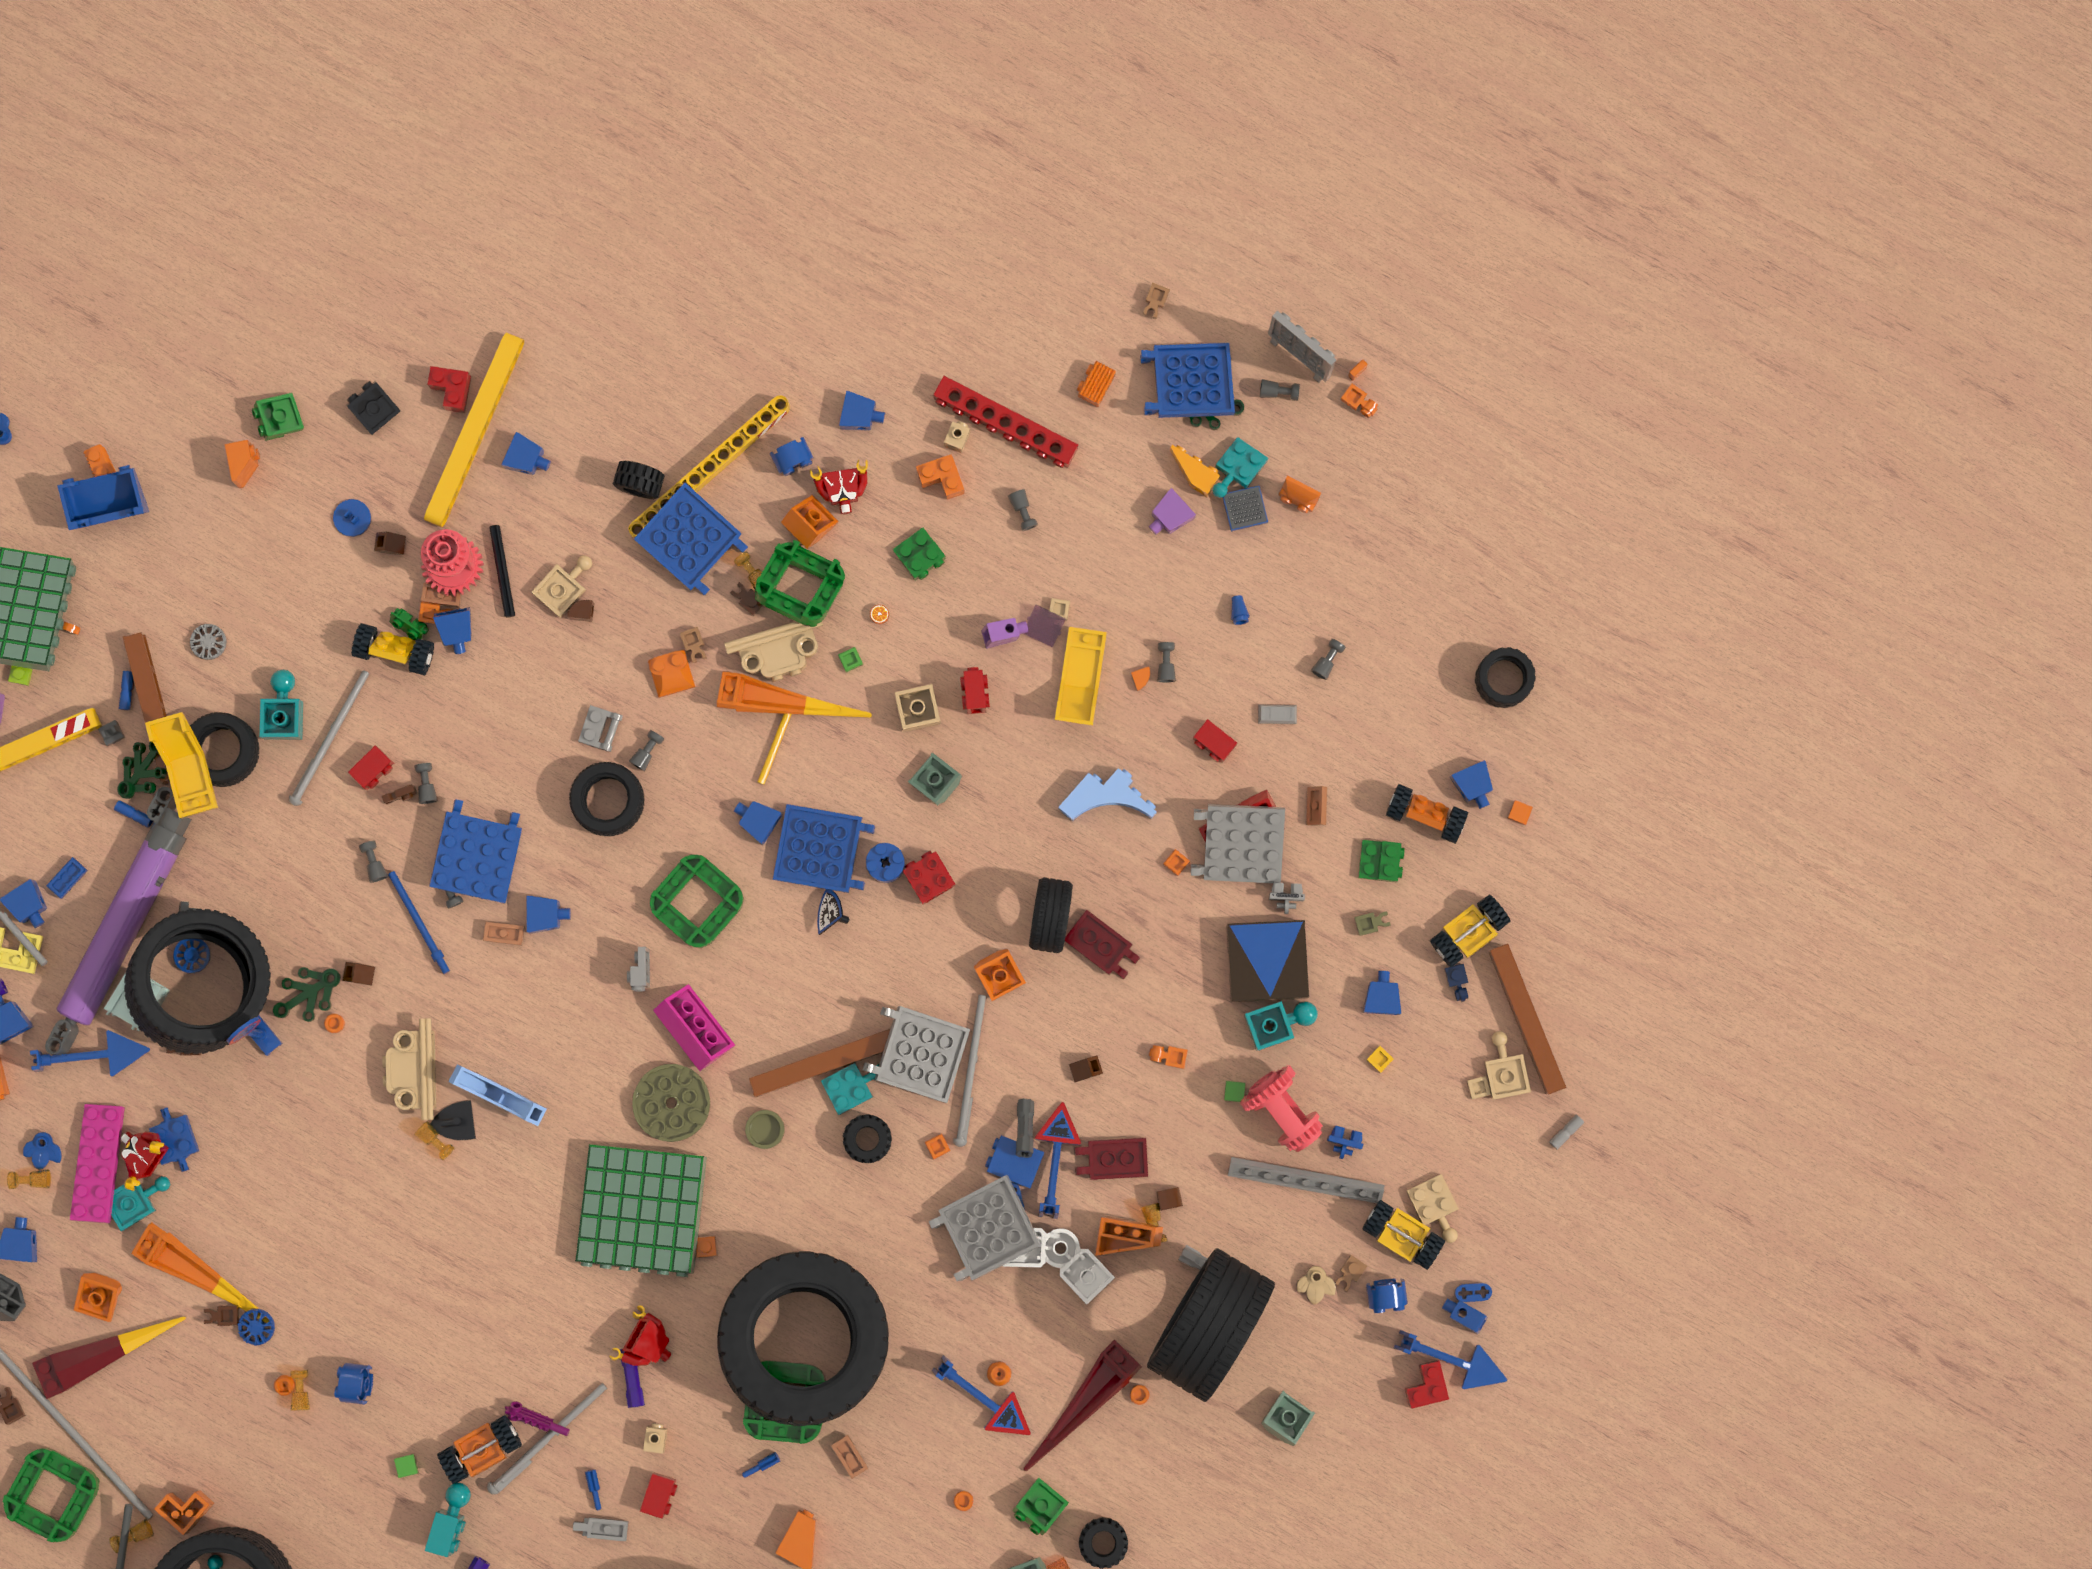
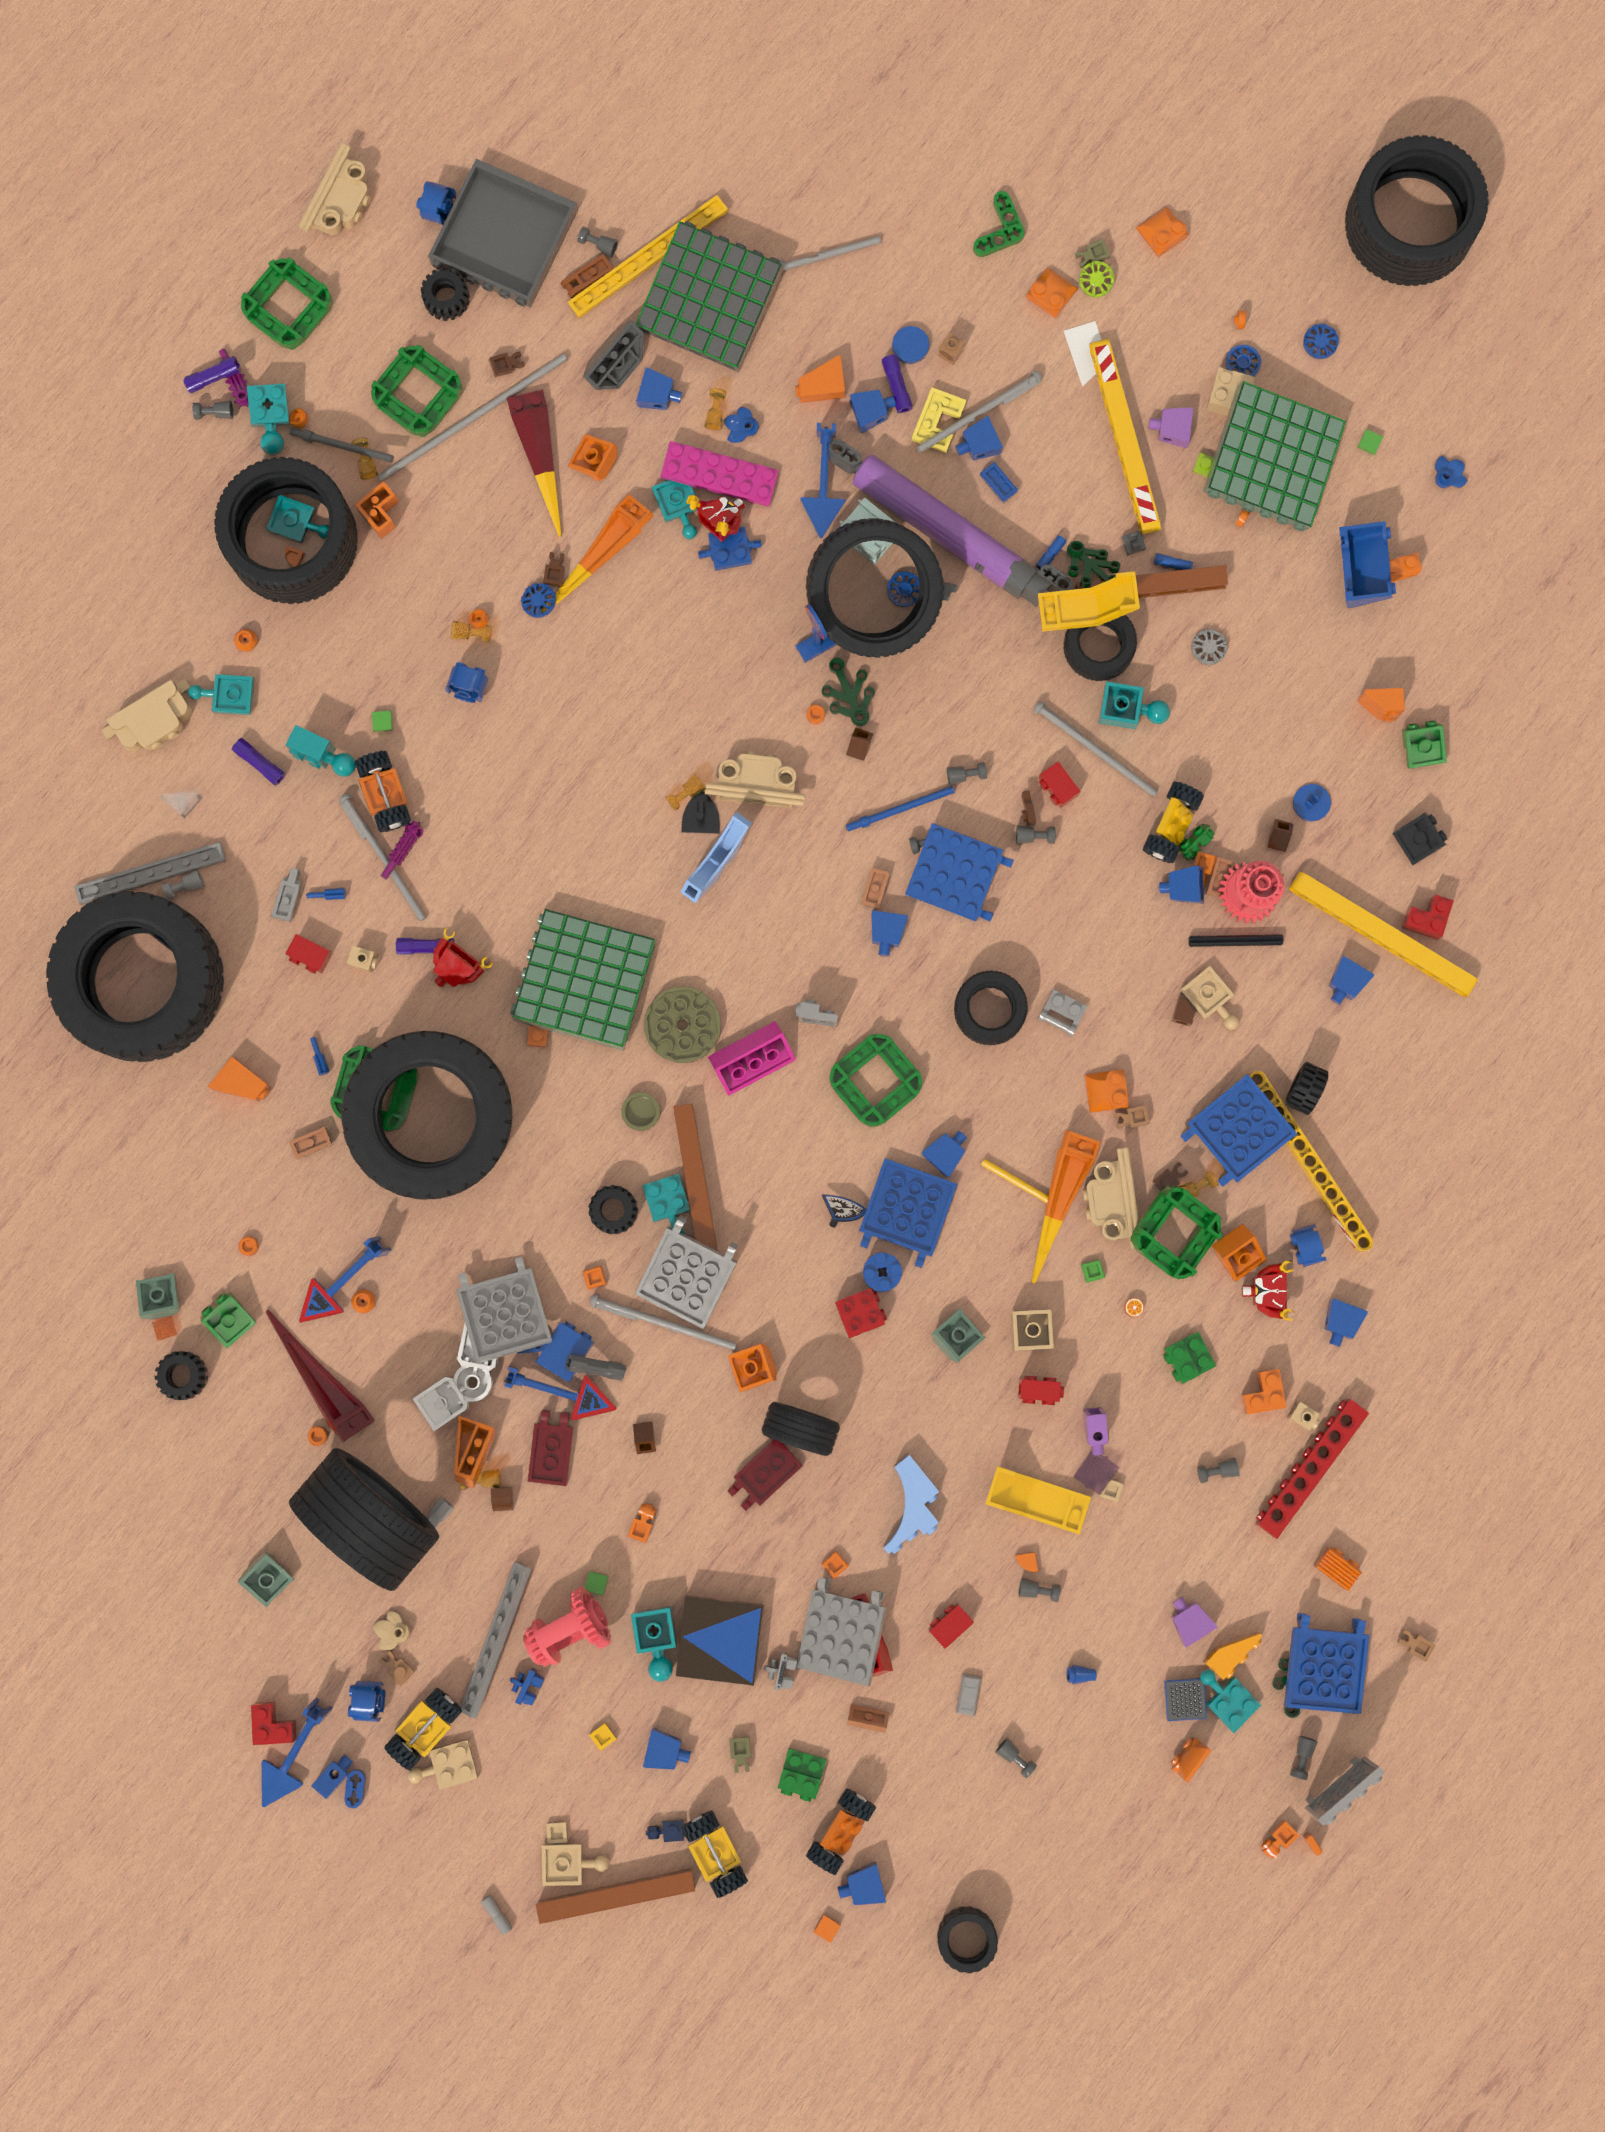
camera: 105 degrees right, 0 degrees up
(642, 756) = (1027, 1049): dark grey piece -> none

